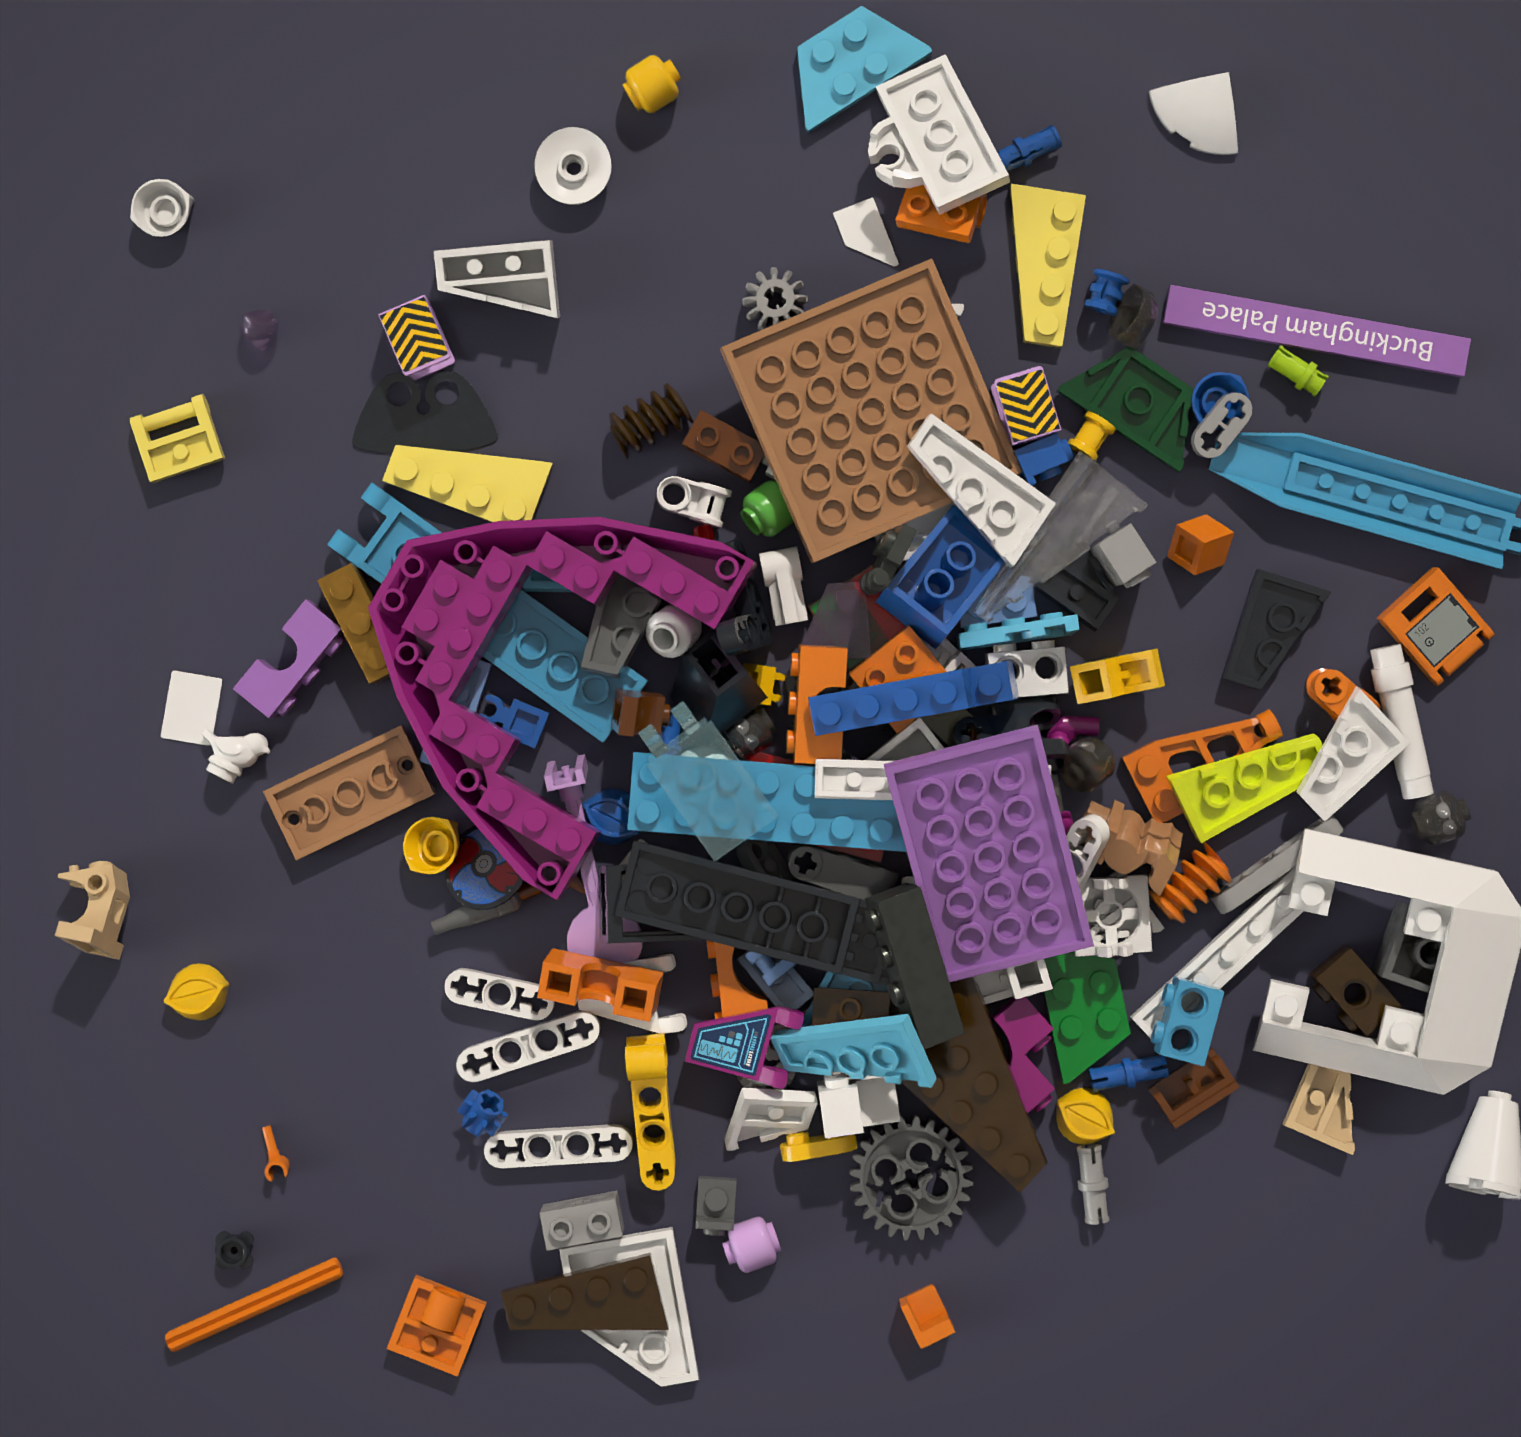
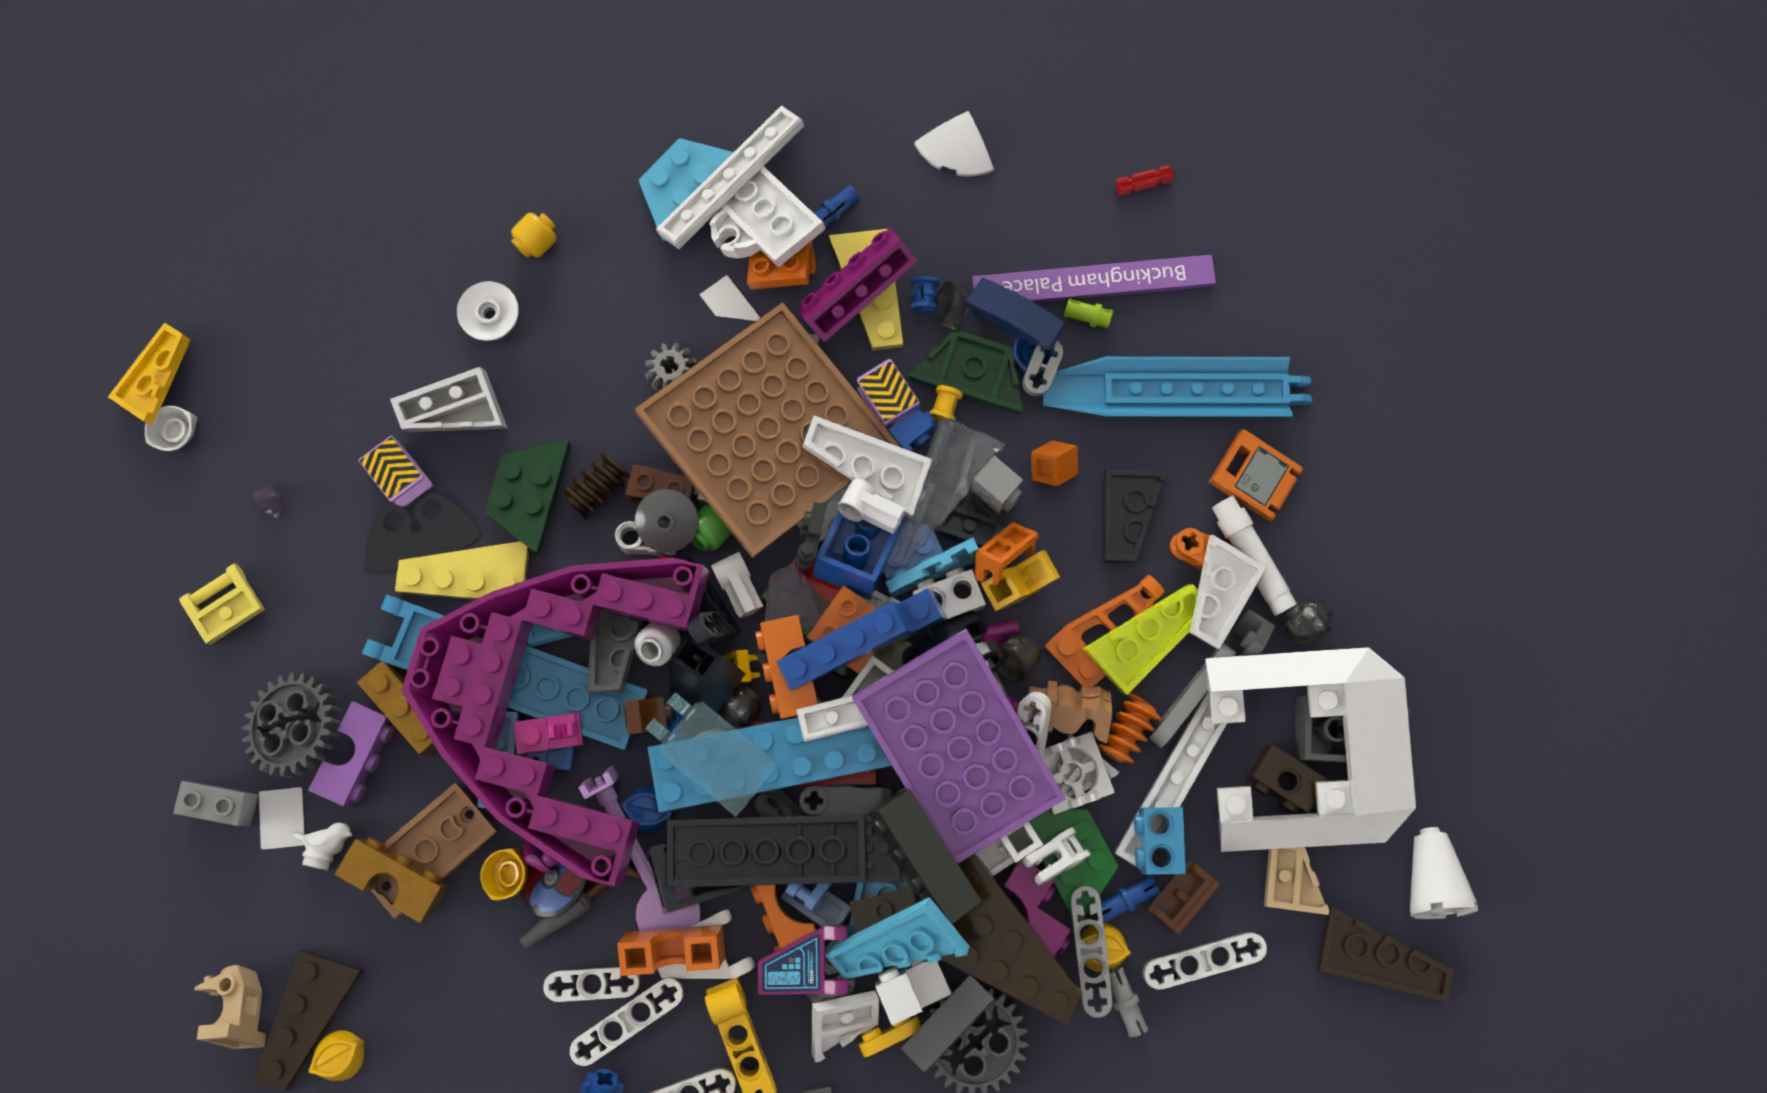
camera: 20 degrees left, 10 degrees down
(123, 673) = (215, 803): none -> light grey brick
(153, 134) = (151, 374): none -> yellow wing
(175, 929) = (307, 1006): none -> dark brown wing
(226, 639) = (299, 736): none -> dark grey gear
(332, 838) = (418, 890): none -> pearl gold arch
(468, 835) = (537, 860): none -> magenta arm
(521, 700) = (548, 733): none -> dark pink plate
(565, 403) = (527, 491): none -> dark green wing
(734, 474) = (681, 514): none -> dark grey dish
(887, 1152) = (947, 1024): none -> dark grey tile
(911, 77) = (730, 177): none -> white tile
(959, 535) = (863, 503): none -> white piece
(1028, 261) = (856, 284): none -> magenta brick
(1067, 1118) = (1088, 951): none -> light grey beam
(1077, 1001) = (1065, 848): none -> white piece
(1108, 637) = (1003, 550): none -> orange hinge
(1195, 1169) = (1203, 957): none -> white beam
(1208, 352) = (1015, 314): none -> dark blue slope
(1373, 814) = (1254, 632): none -> dark grey bracket
(1386, 1214) = (1369, 956): none -> dark brown wing
(1419, 219) = (1144, 180): none -> red axle

